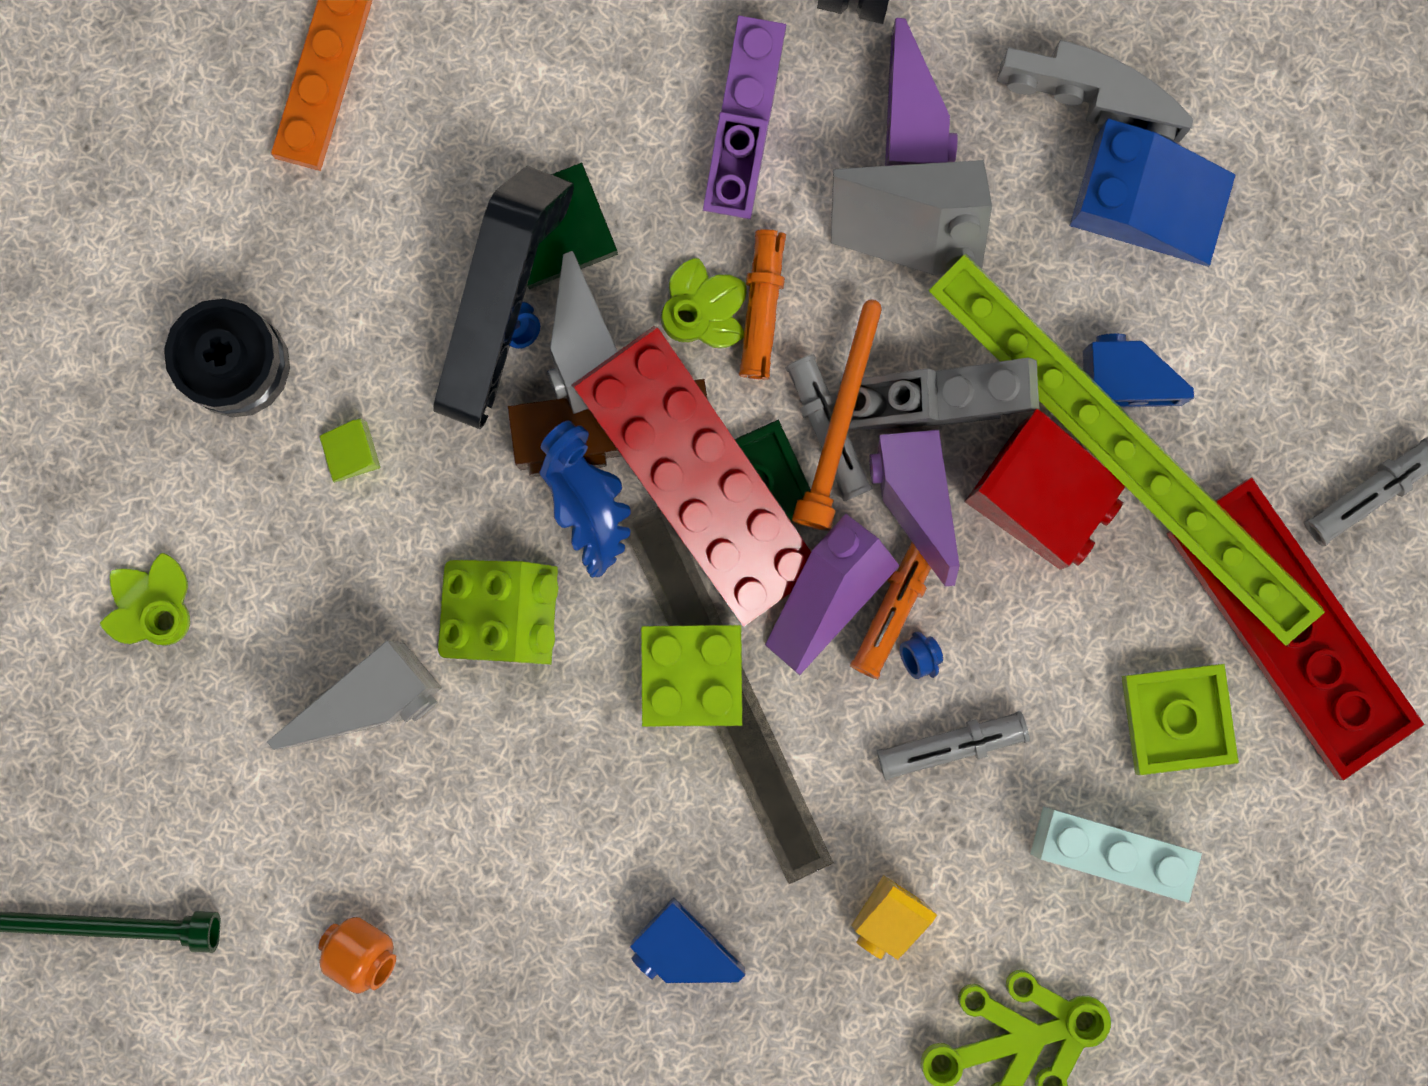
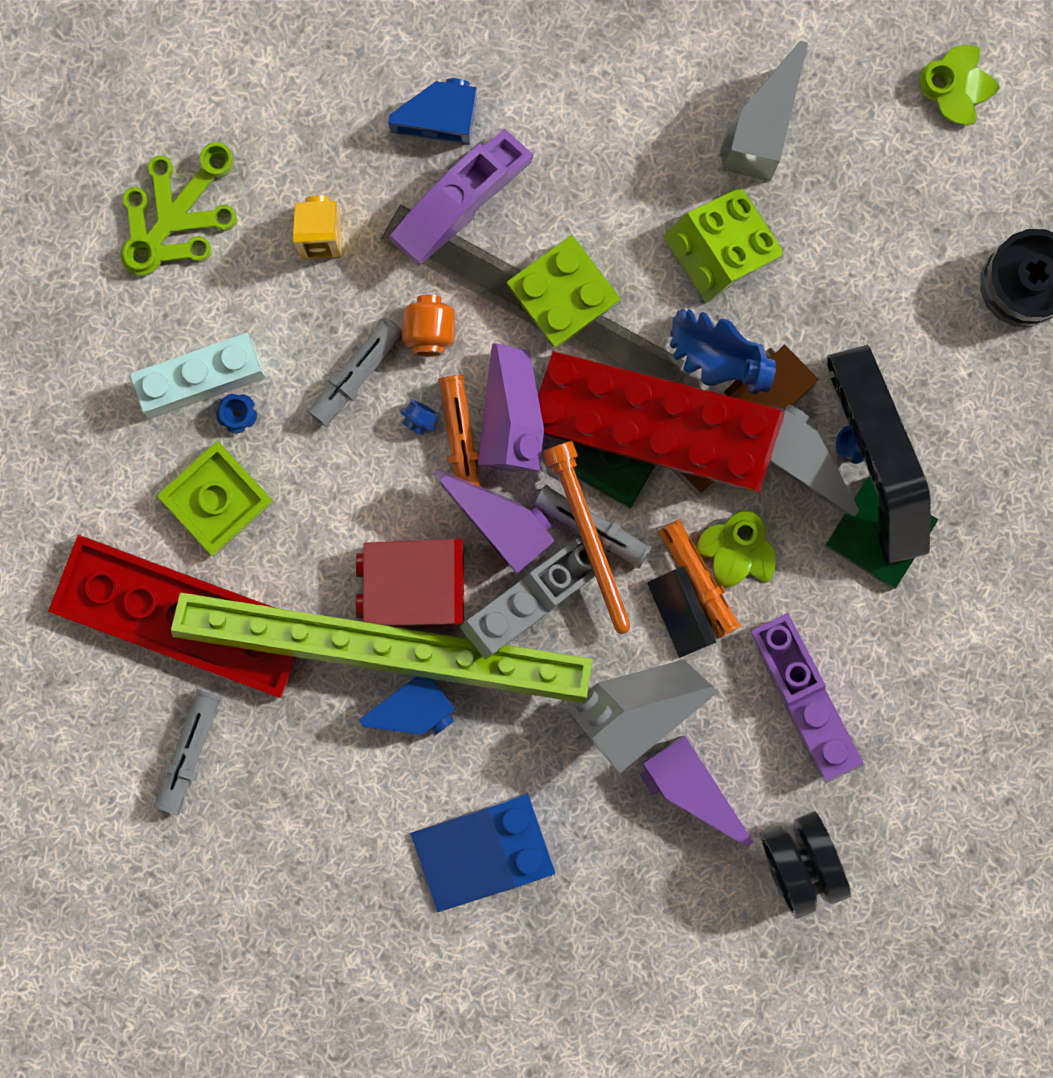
camera: 140 degrees right, 0 degrees up
(349, 450) = (903, 280): lime slope -> none
(725, 846) = (459, 195): none -> medium lavender slope
(803, 284) = (681, 612): none -> black tile
(850, 738) = (428, 326): none -> orange head
(1111, 88) = (559, 905): light grey slope -> none
(1112, 790) = (229, 405): none -> blue plate

